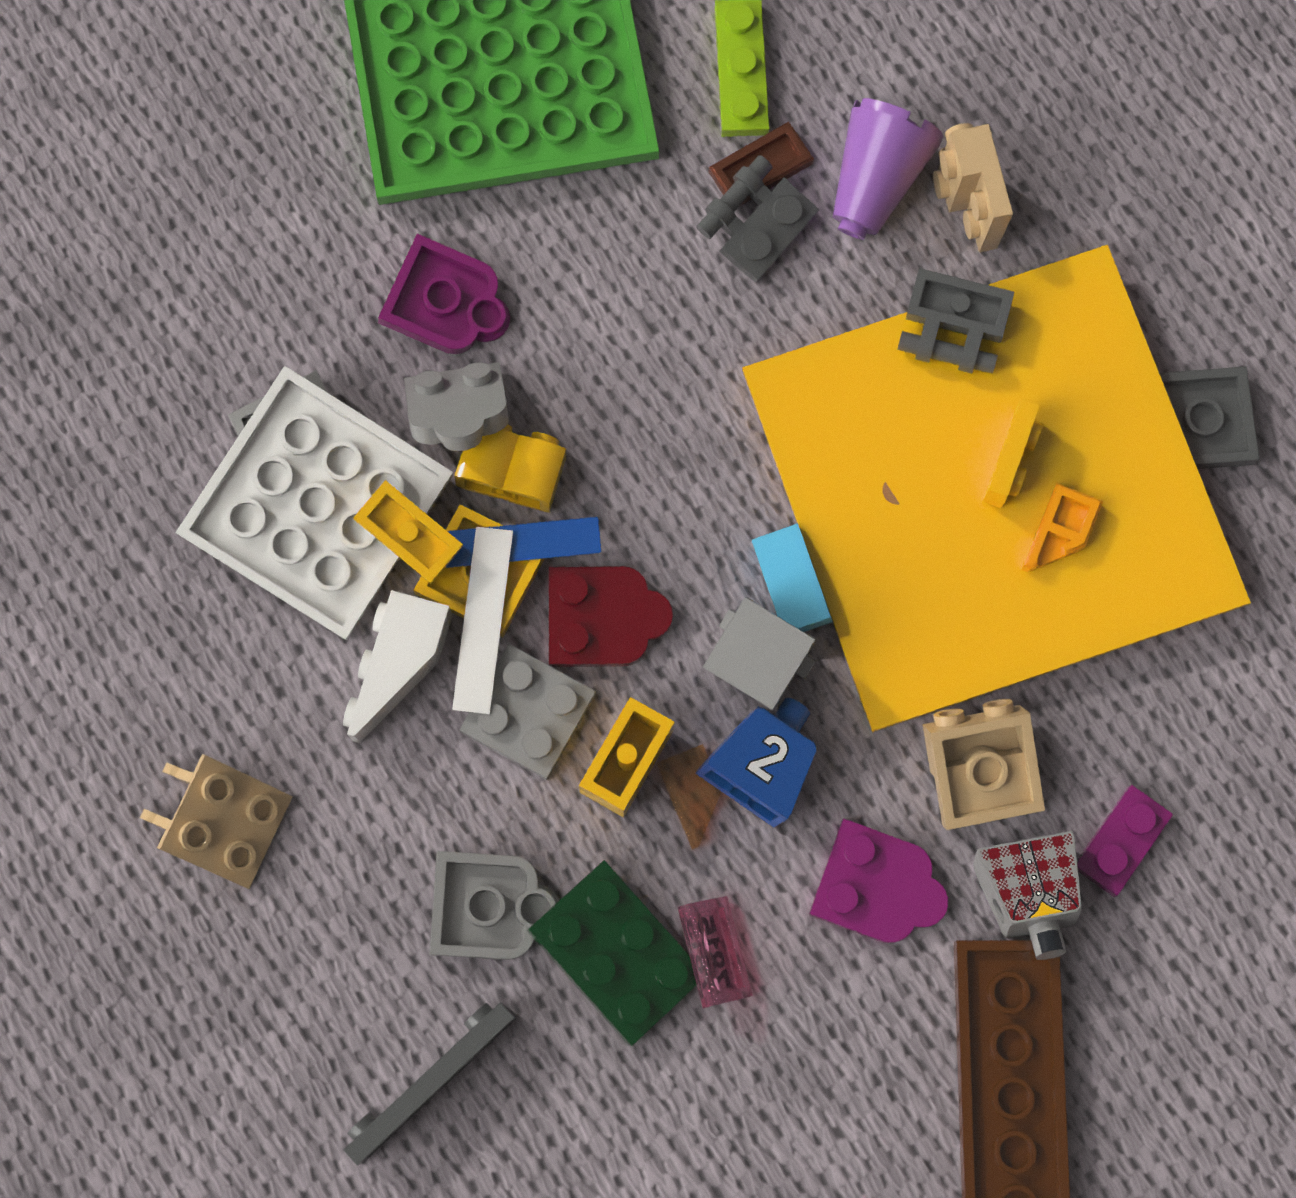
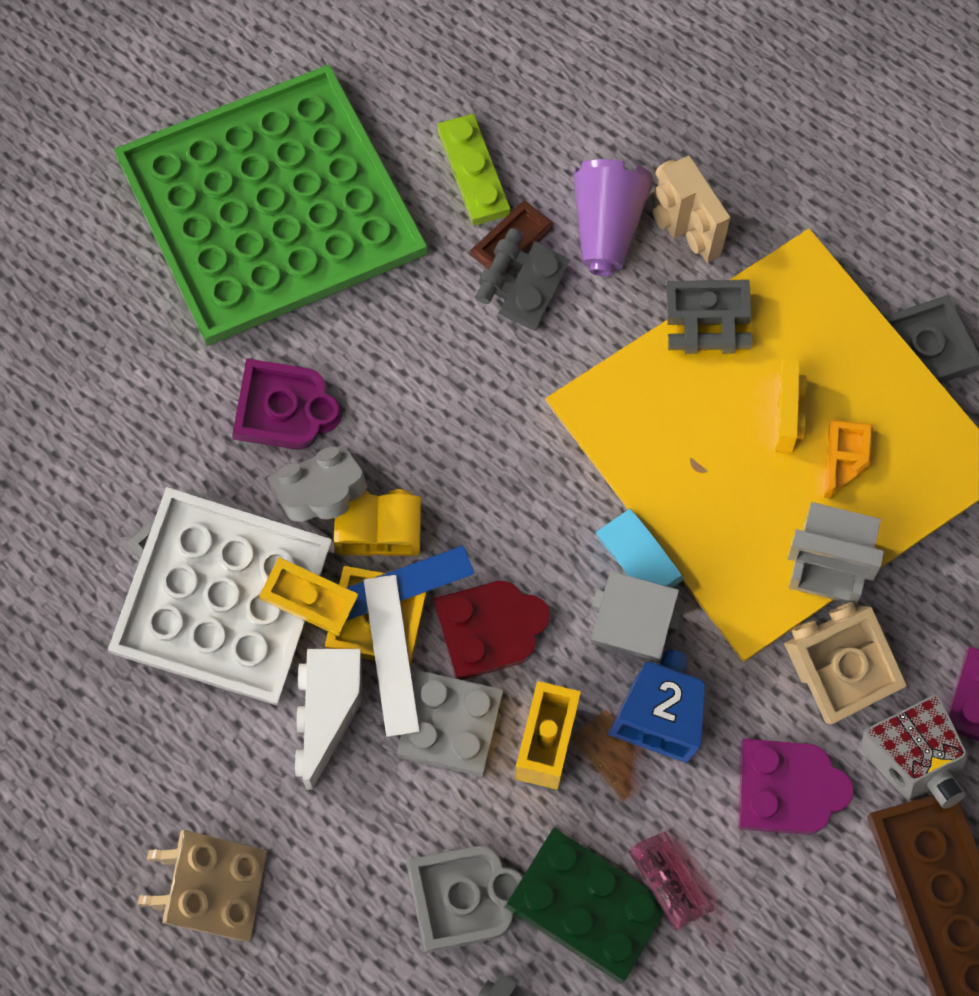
camera: 15 degrees left, 10 degrees down
(1007, 642) = (834, 553): none -> light grey plate

